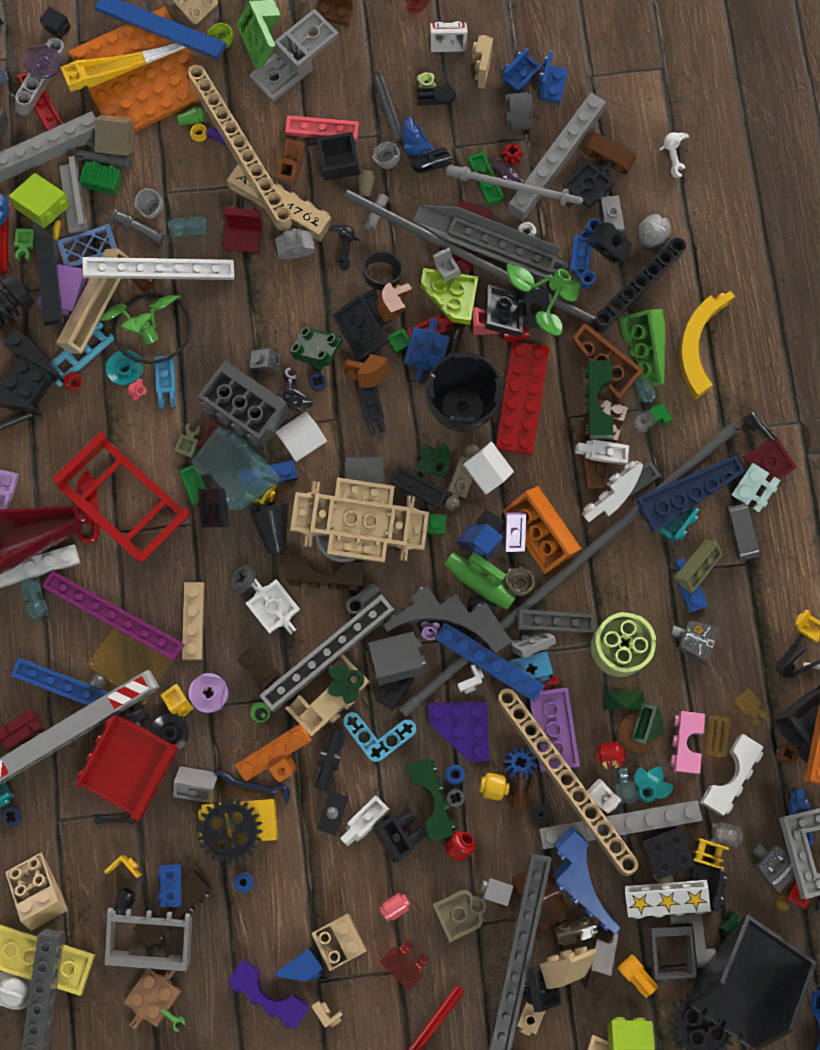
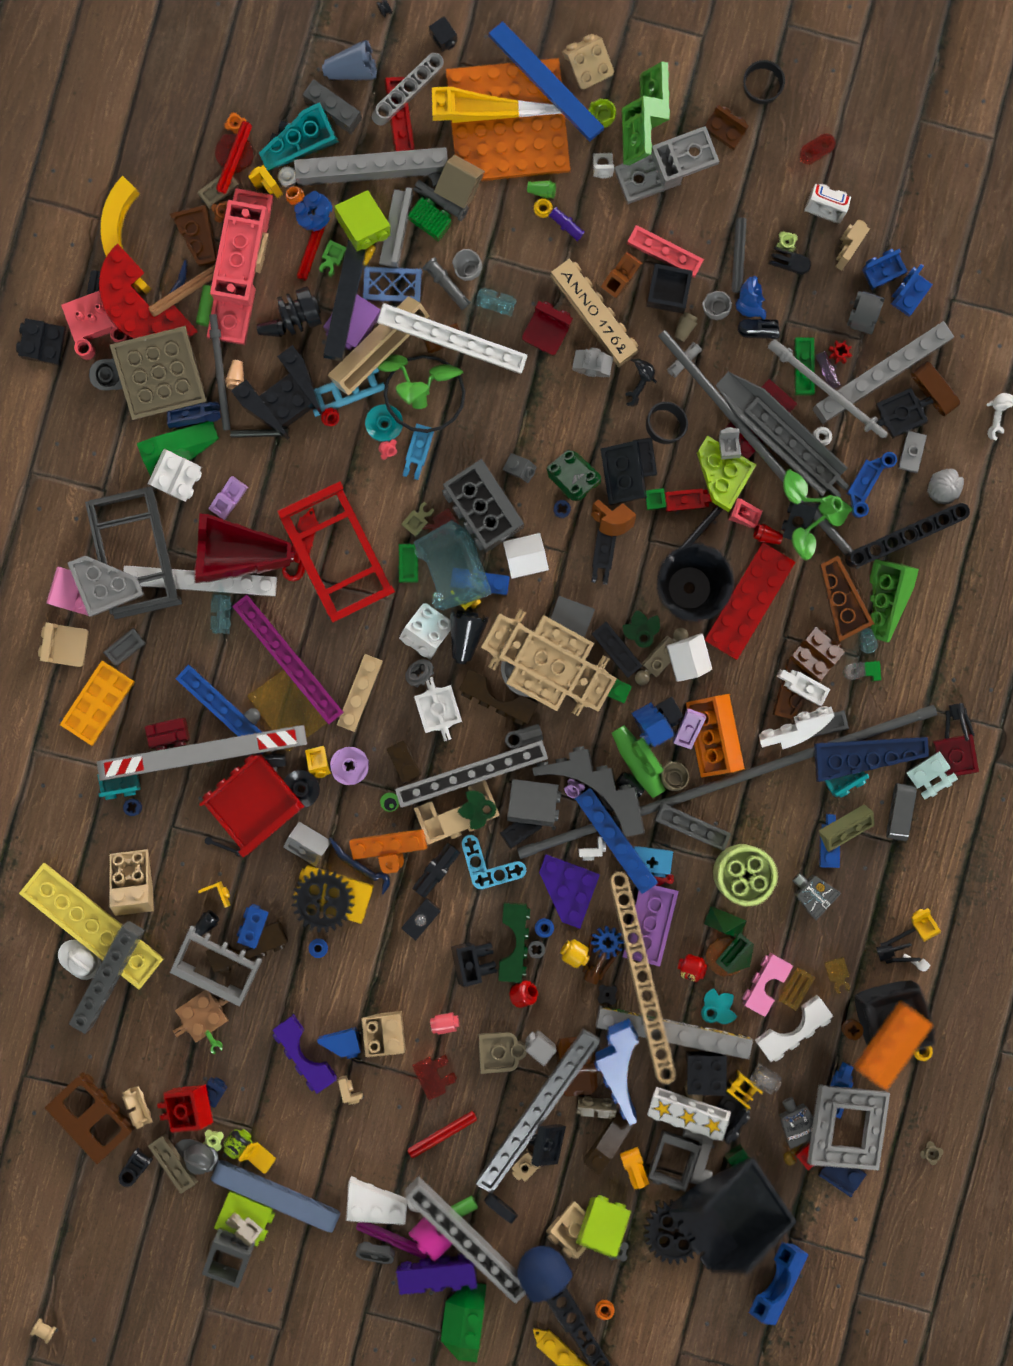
camera: 20 degrees right, 10 degrees up
(42, 61) = (416, 76): clear purple tile -> none
(208, 96) = (576, 234): tan beam -> none
(213, 507) = (417, 595): black plate -> none
(235, 541) = (426, 631): none -> white bracket
(240, 80) = (603, 171): none -> white bracket
(294, 398) = (531, 517): black piece -> none
(365, 820) = (447, 937): white hinge -> none
(389, 301) = (660, 458): brick -> none
(425, 349) = (677, 519): blue plate -> none
(503, 311) = (766, 511): black plate -> none
(531, 644) = (663, 840): light grey plate -> none
(567, 967) = (575, 1137): tan slope -> none
(600, 423) = (829, 613): dark green arch -> none
(603, 796) = (669, 1001): white bracket -> none
(610, 243) = (897, 483): black brick -> none
(625, 790) = (692, 1002): clear light blue plate -> none
(689, 360) = (923, 628): yellow arch -> none

